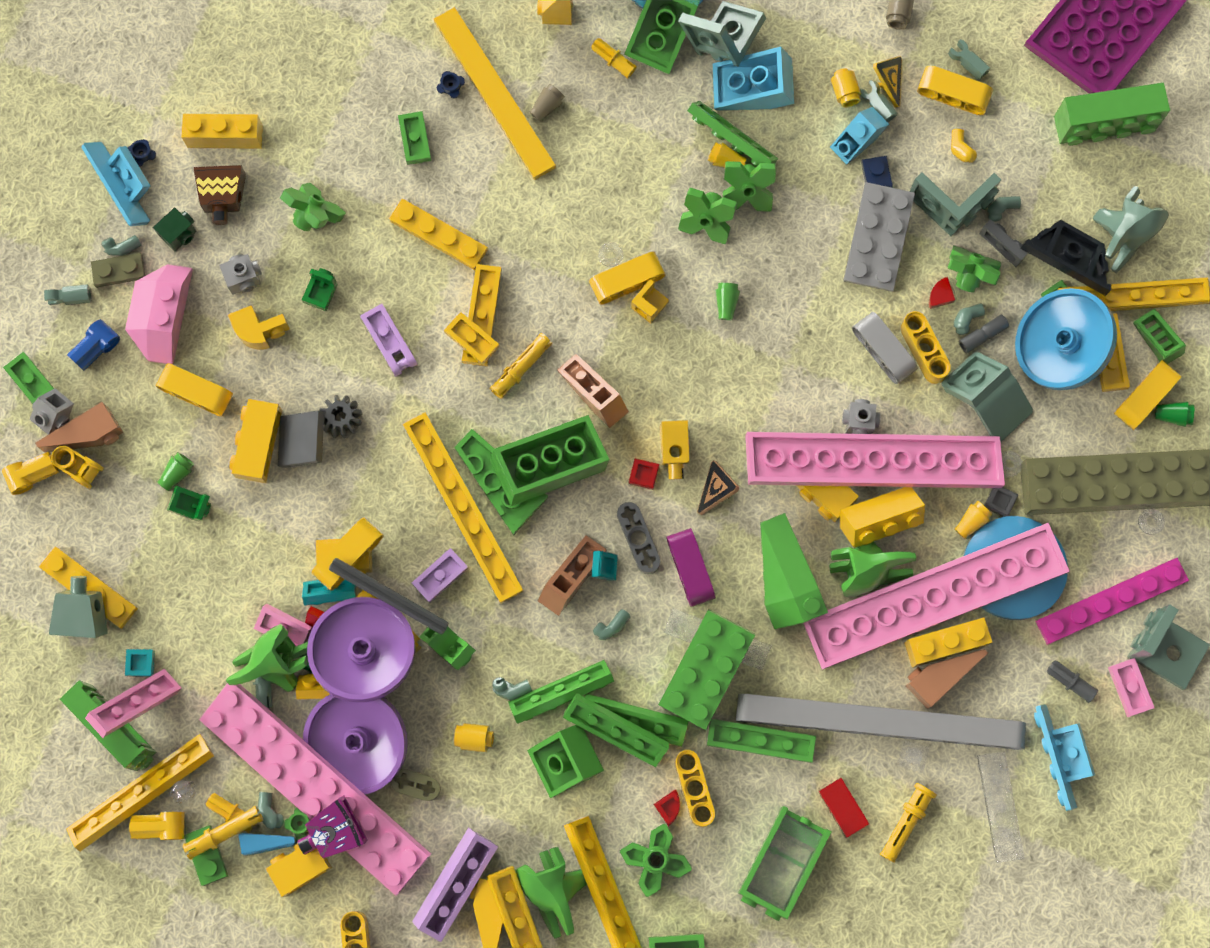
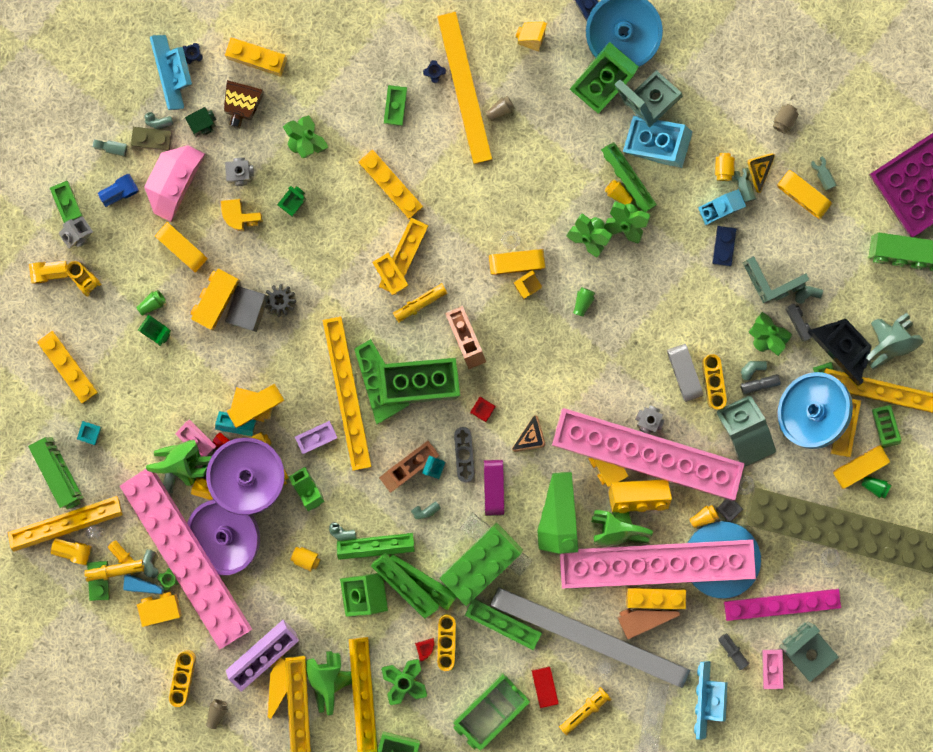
camera: 20 degrees right, 10 degrees up
(78, 611) = (56, 385): sand green torso -> none
(88, 430) = (99, 253): nougat slope -> none
(133, 703) = (77, 463): bright pink plate -> none
(333, 830) = (190, 594): magenta torso -> none
(388, 339) = (330, 253): lavender plate -> none
(388, 596) = (275, 446): dark grey axle -> none
(414, 791) = (252, 582): olive beam -> none
(613, 58) = (561, 89): yellow axle -> none
(674, 435) = (511, 391): yellow torso -> none
(879, 237) = (709, 289): light grey plate -> none
(941, 294) = (740, 344): red tile -> none
(961, 149) = (792, 239): yellow arm -> none

